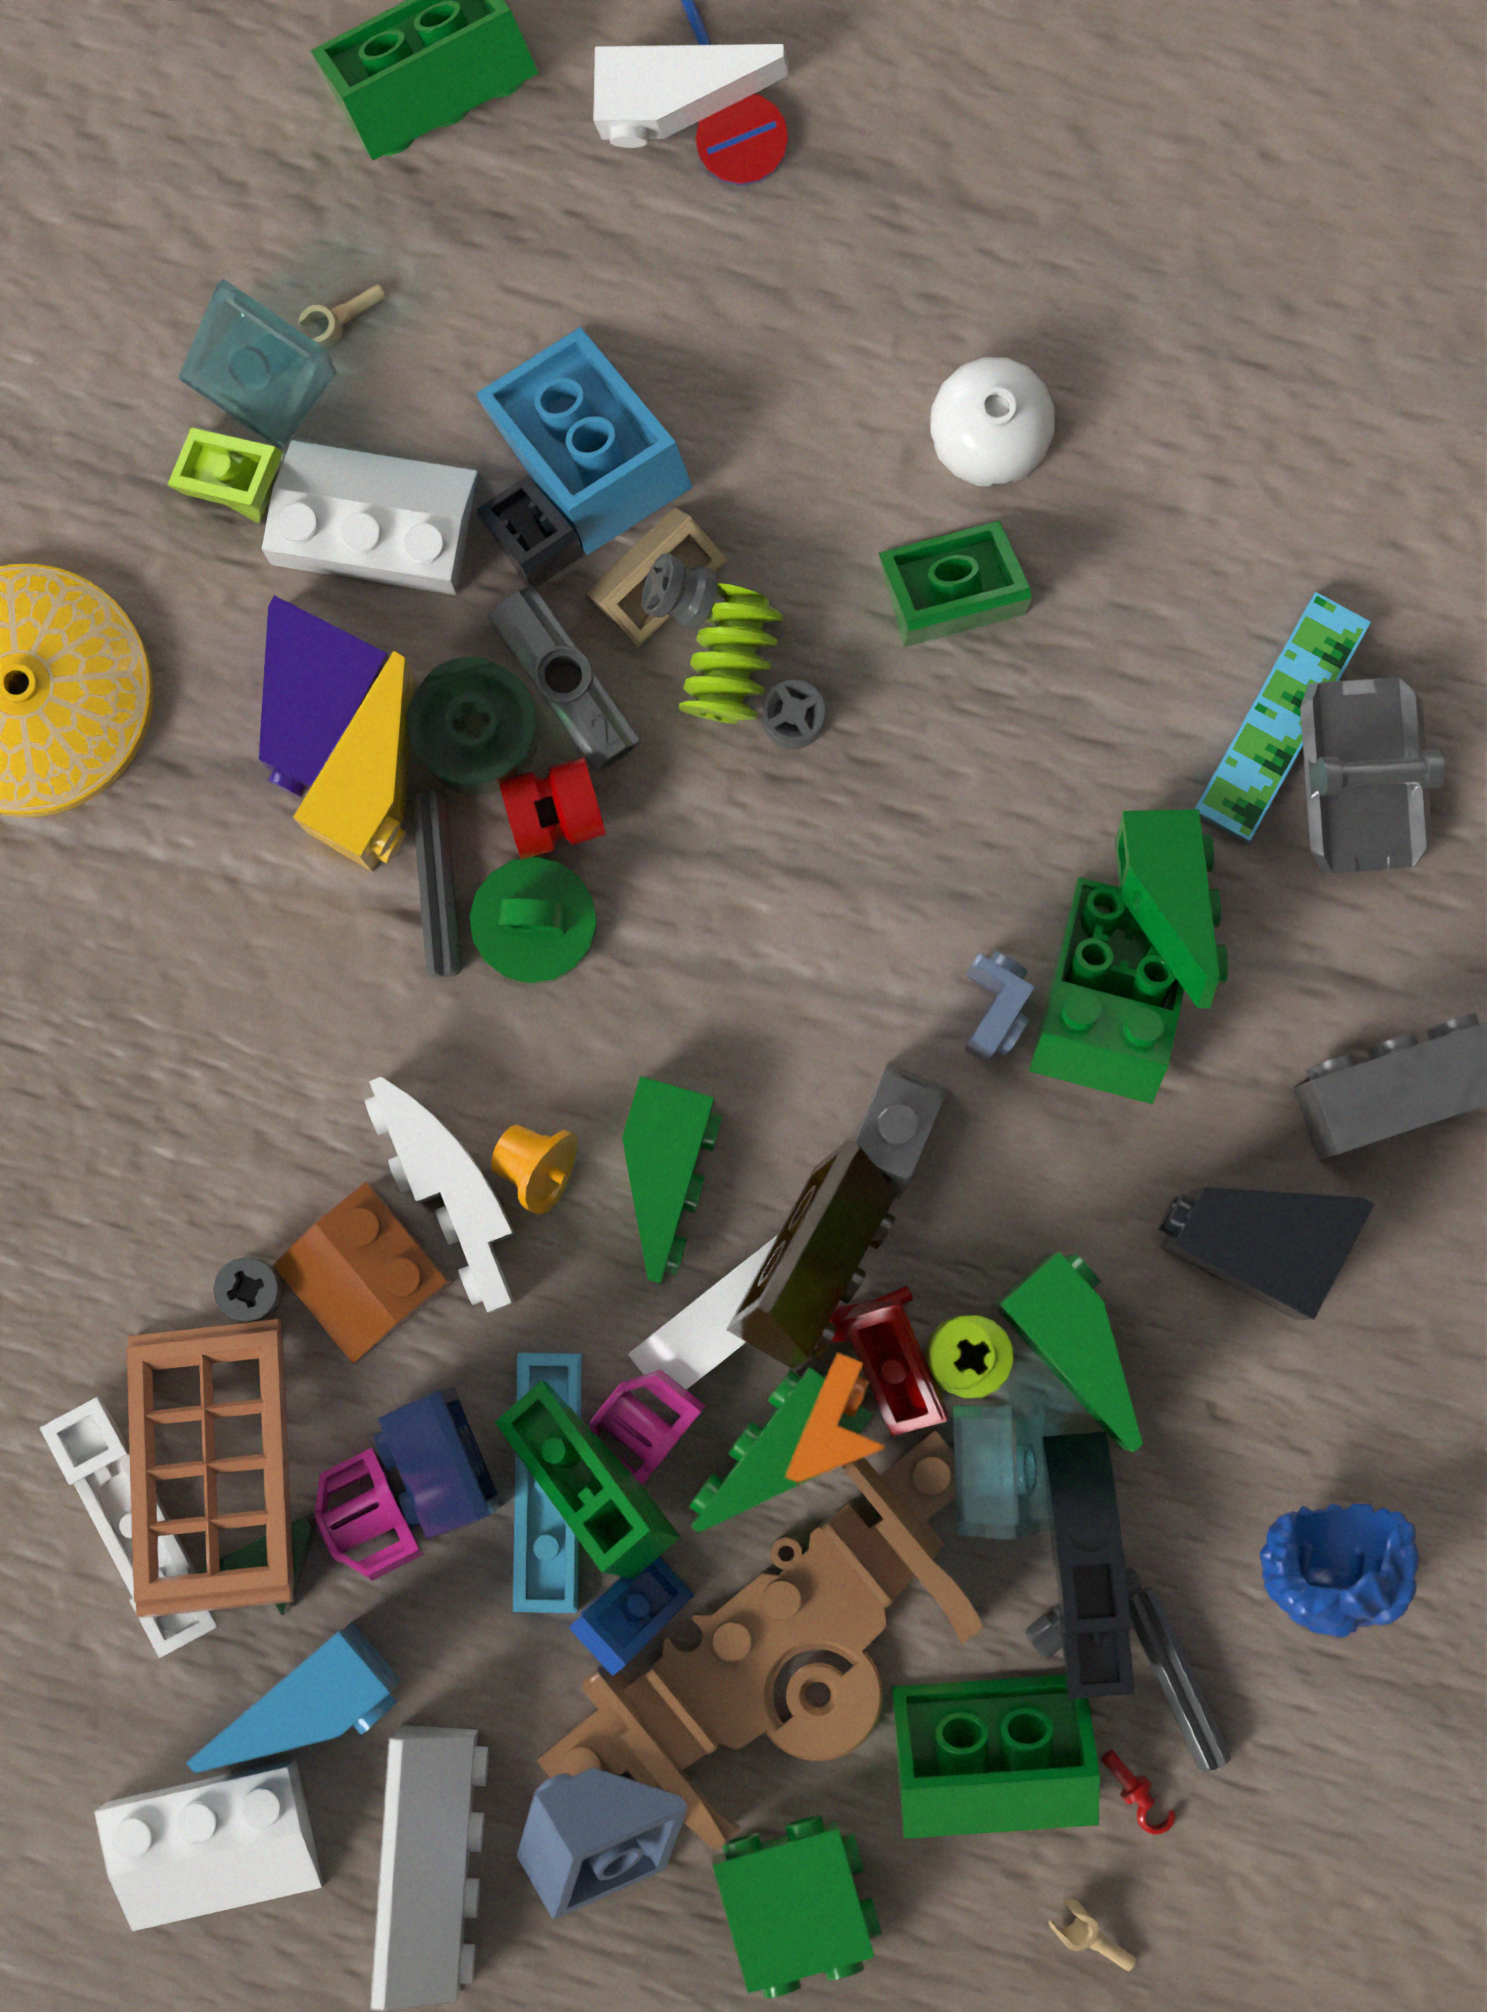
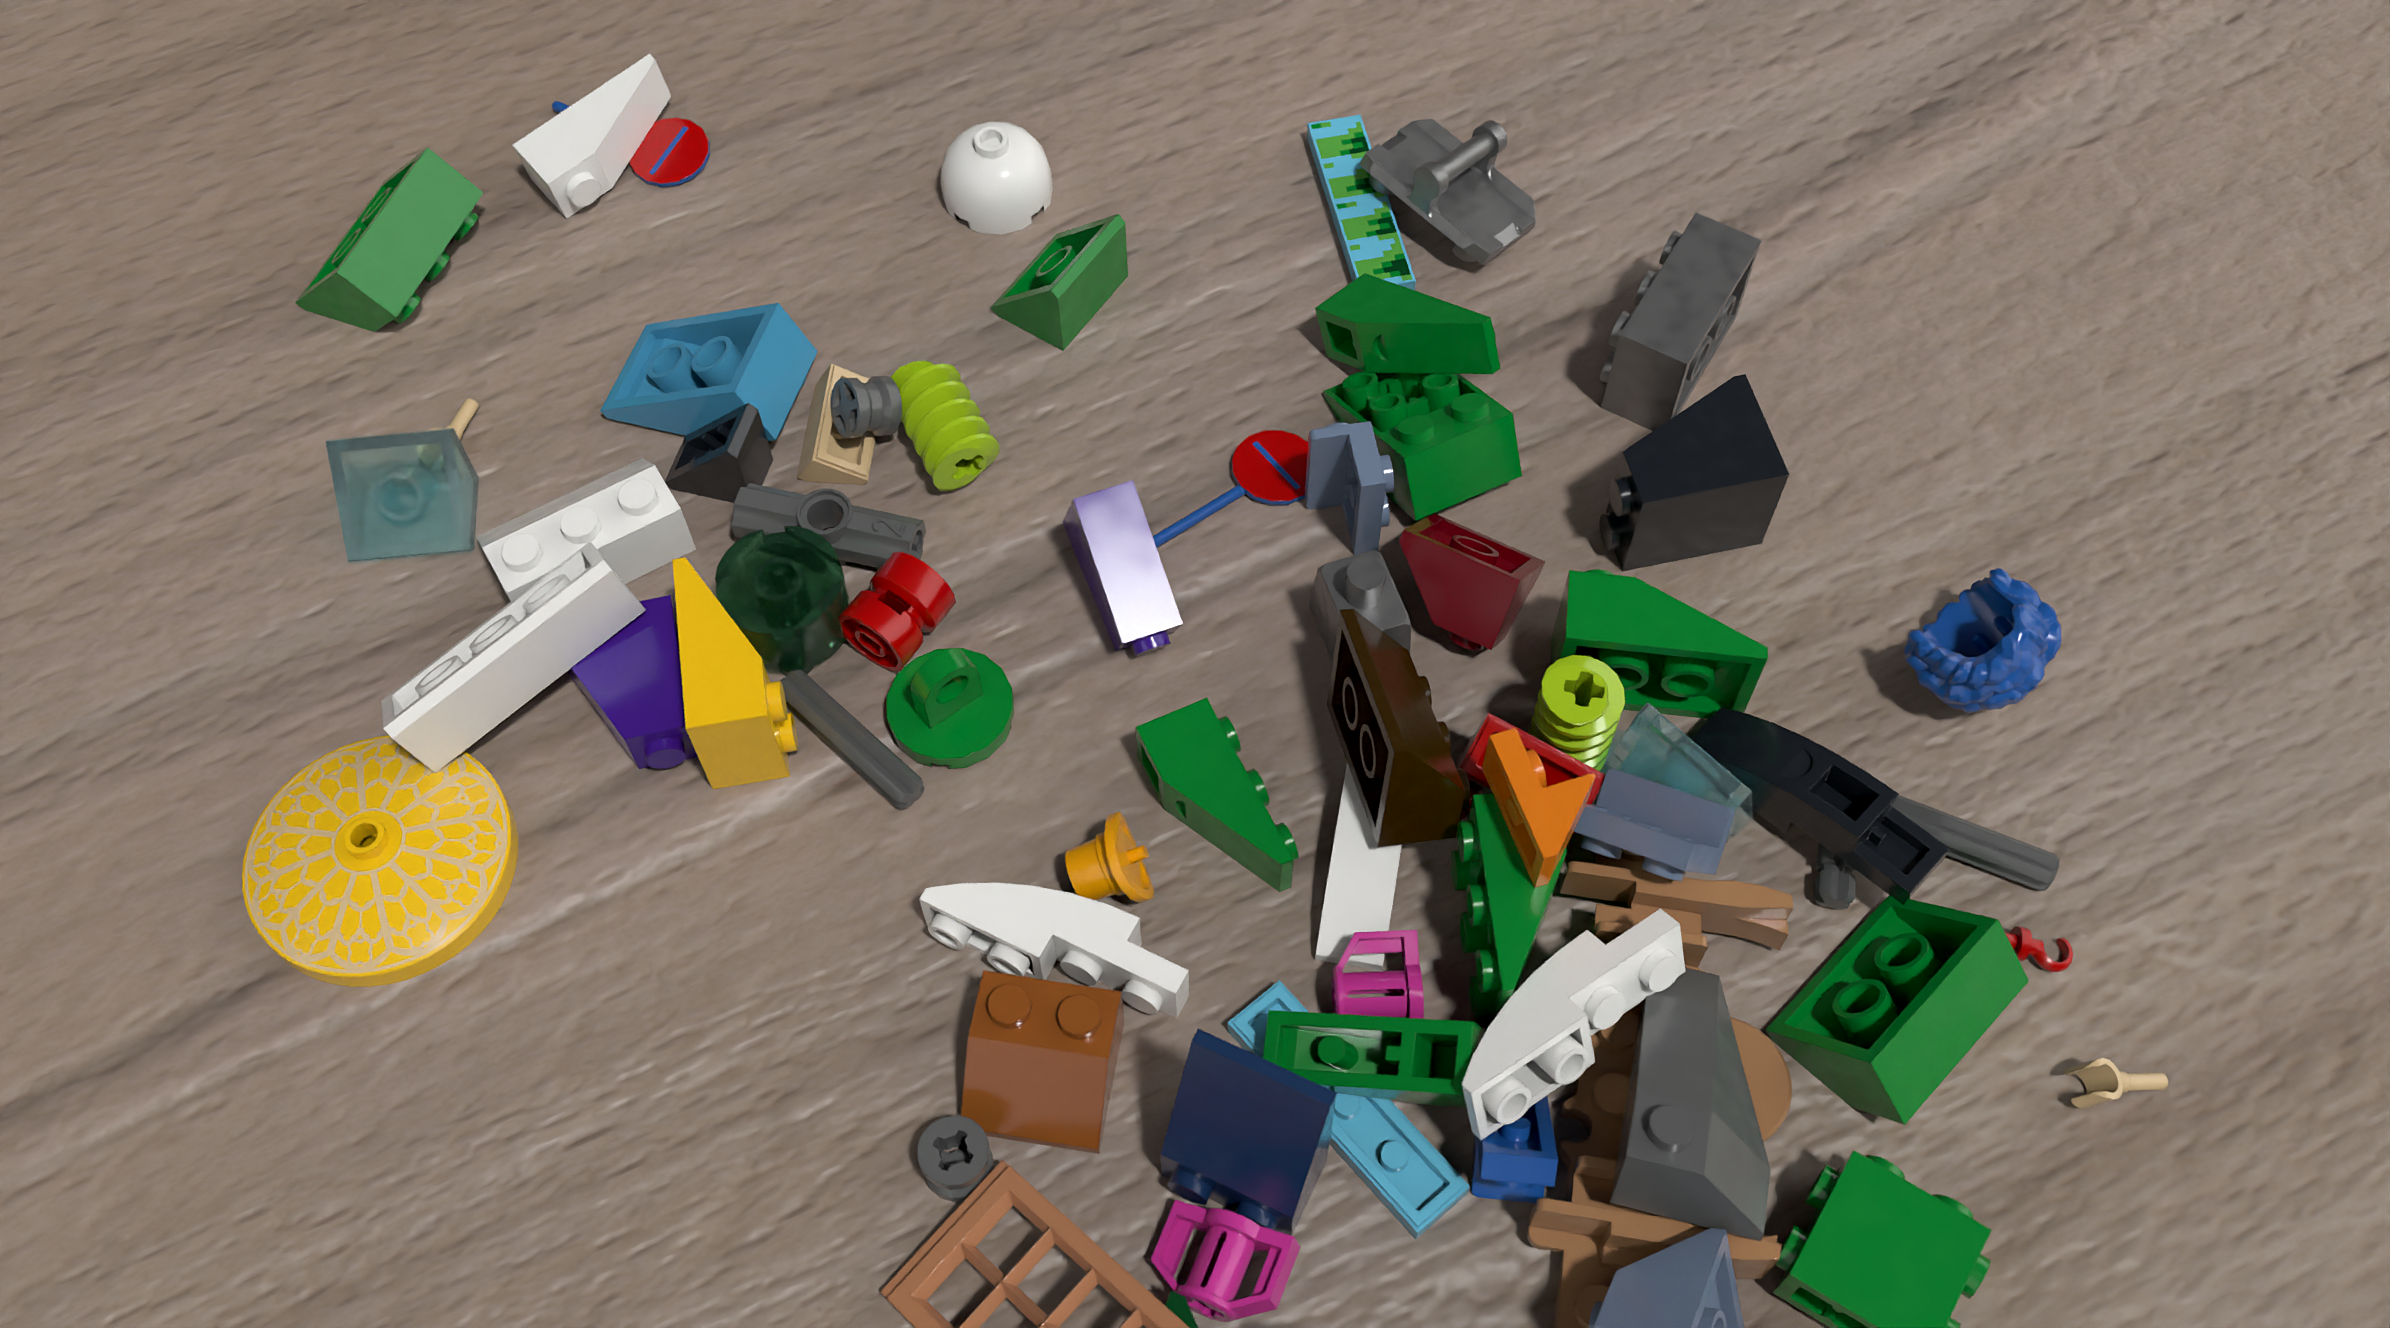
camera: 40 degrees left, 25 degrees down
(223, 609) = (509, 658): none -> white slope
(227, 471) = (436, 574): lime slope -> none
(700, 1570) = (1548, 1023): none -> white slope
(754, 1709) = (1689, 1116): none -> dark grey wedge
(755, 919) = (1123, 568): none -> slope
(789, 704) = (1015, 419): dark grey wheel -> none
(929, 1492) = (1658, 822): none -> sand blue bracket
(965, 914) = (1265, 467): none -> red piece
(1021, 1155) = (1468, 580): none -> dark red slope

